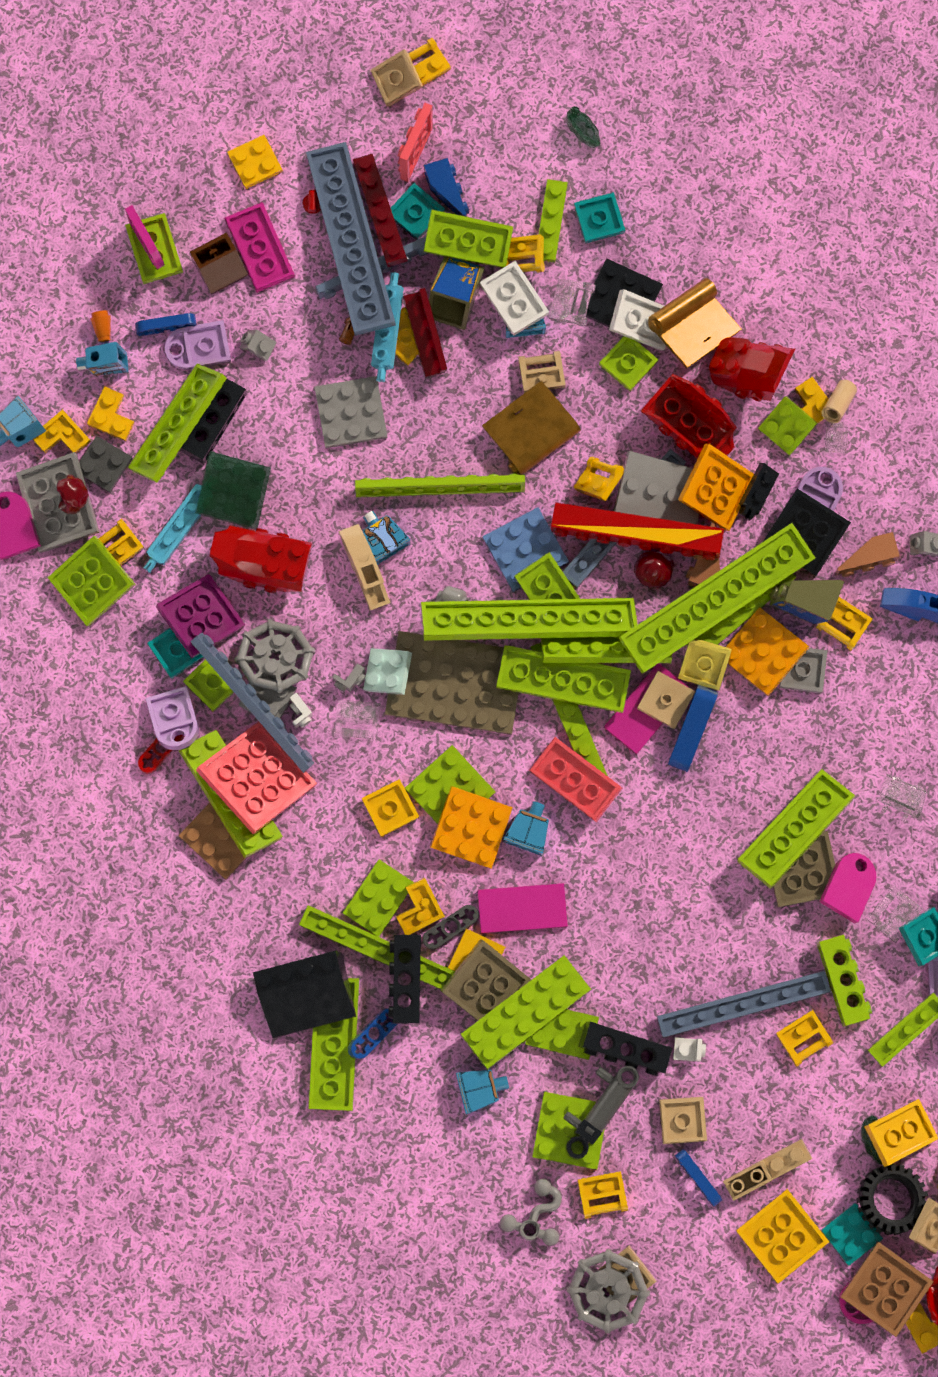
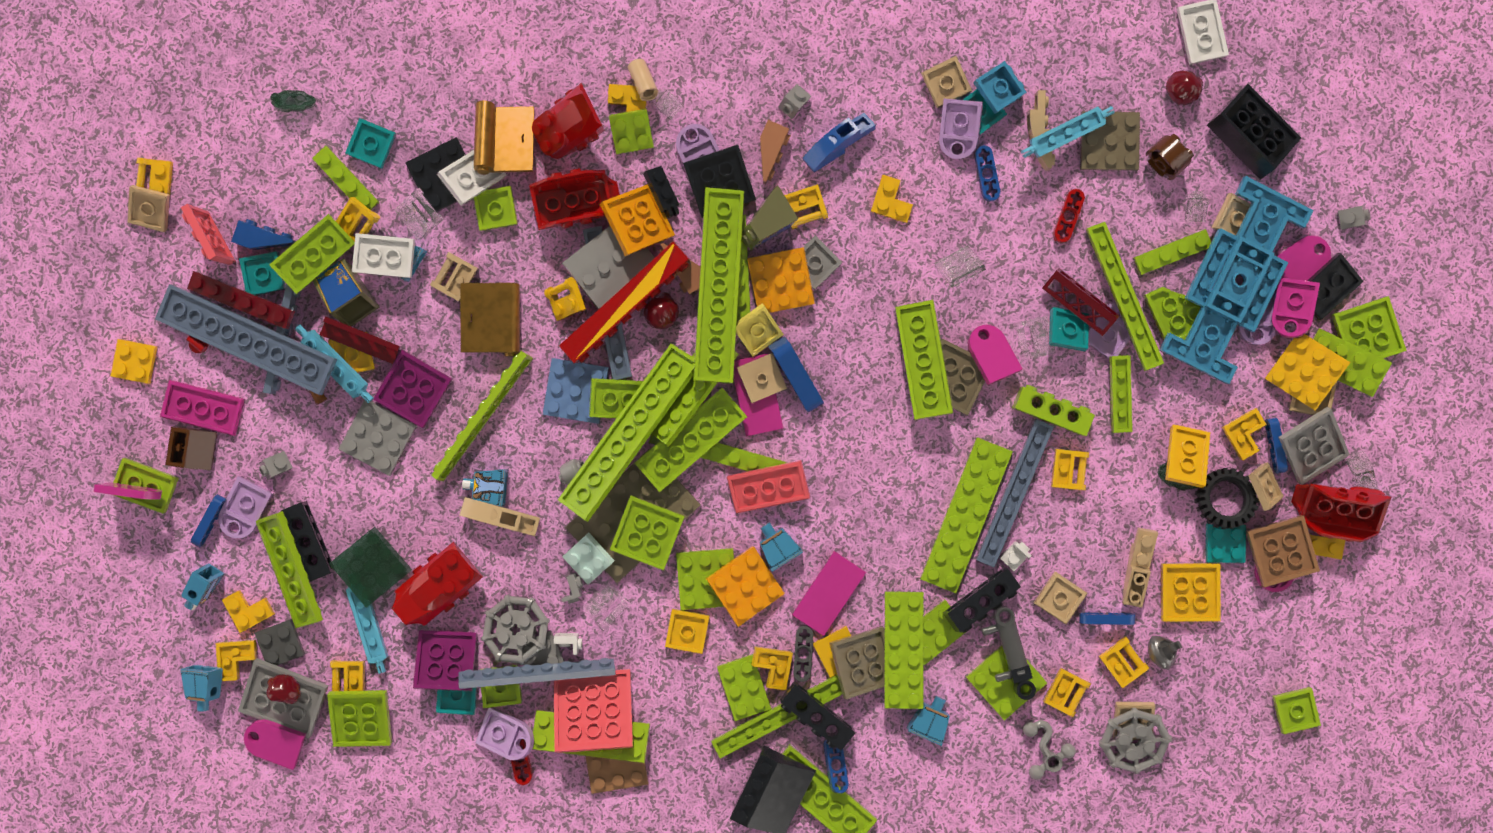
camera: 45 degrees left, 10 degrees up
(102, 325) = (173, 567): orange cone -> none
(417, 410) = (412, 389): none -> magenta plate
(451, 703) = (647, 532): none -> lime plate
(663, 1224) = (1118, 665): none -> yellow plate
(689, 977) = (966, 515): none -> lime plate
(709, 1252) = (1163, 651): none -> flat silver piece
(904, 692) = (885, 201): none -> yellow plate

